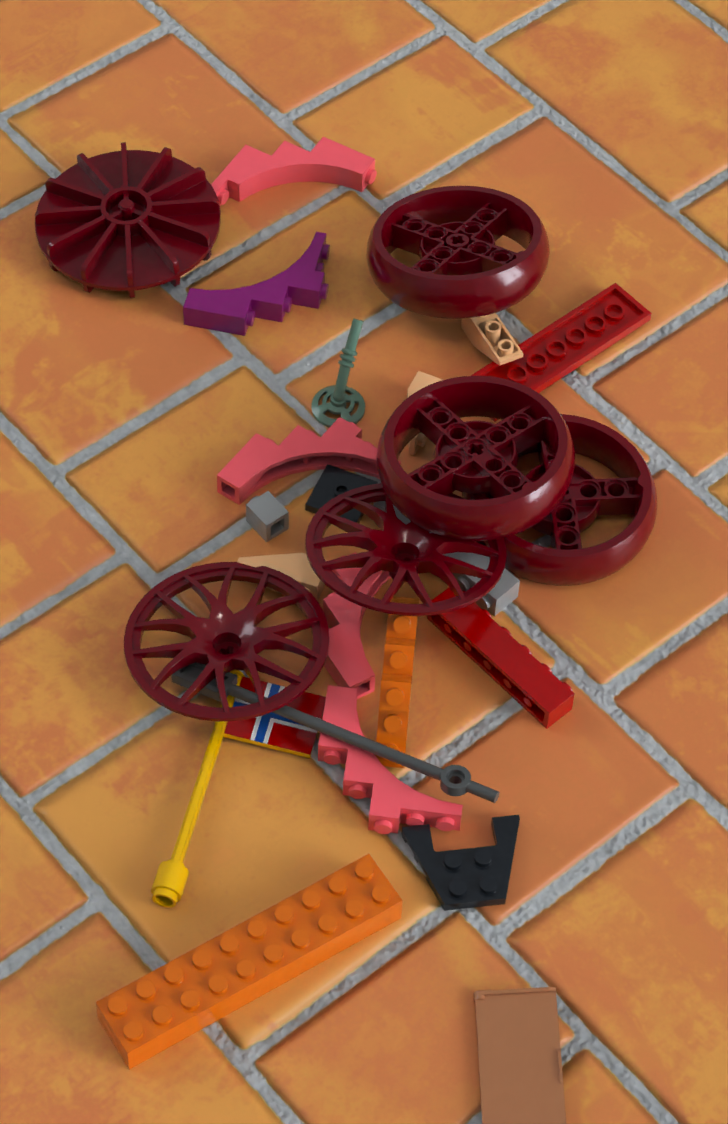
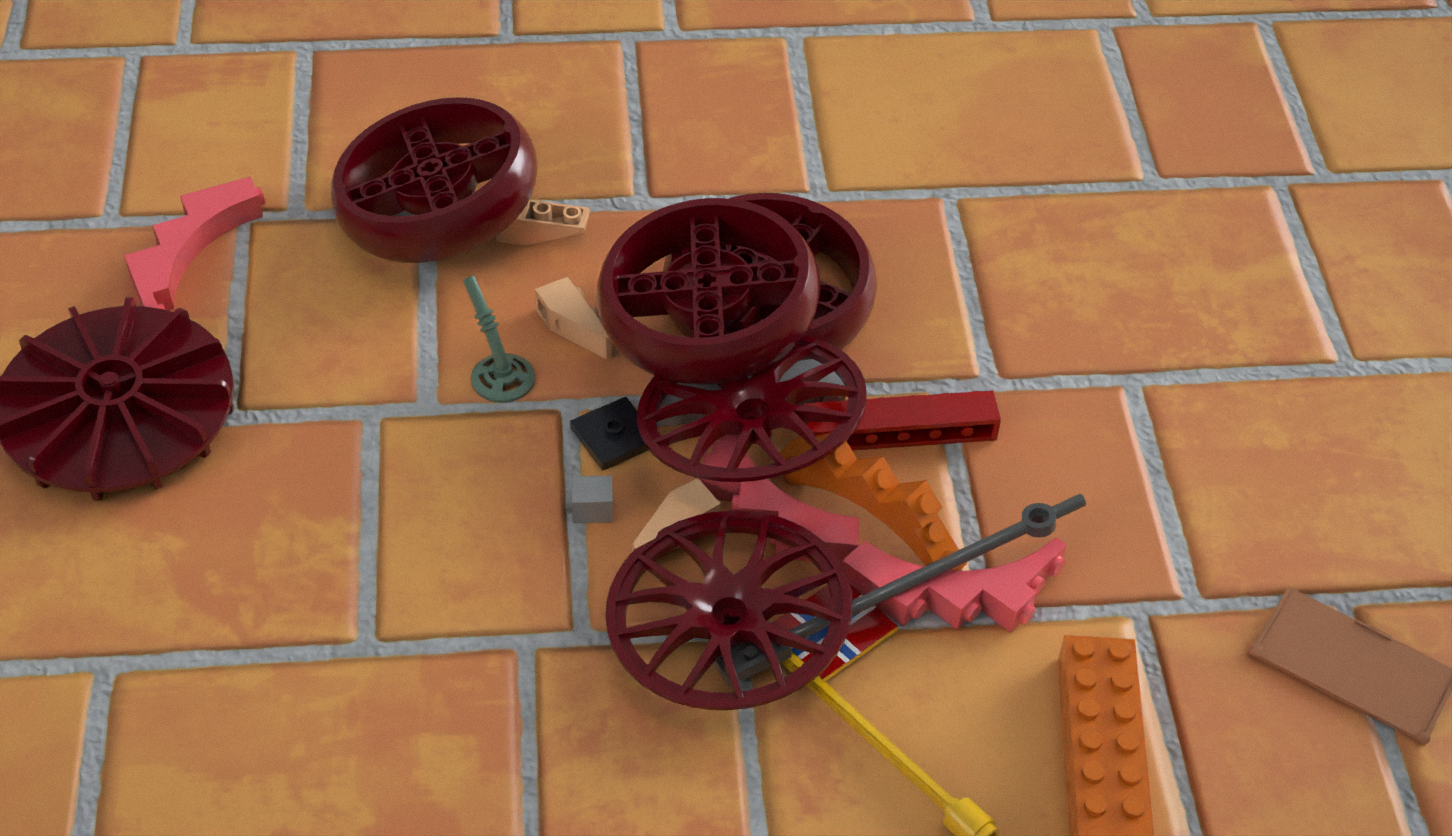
camera: 55 degrees left, 5 degrees down
(237, 308) = (317, 377): magenta arch -> none
(300, 451) = (539, 426): coral arch -> none
(467, 875) = (1118, 584): black wing -> none
(572, 340) = (593, 181): red plate -> none

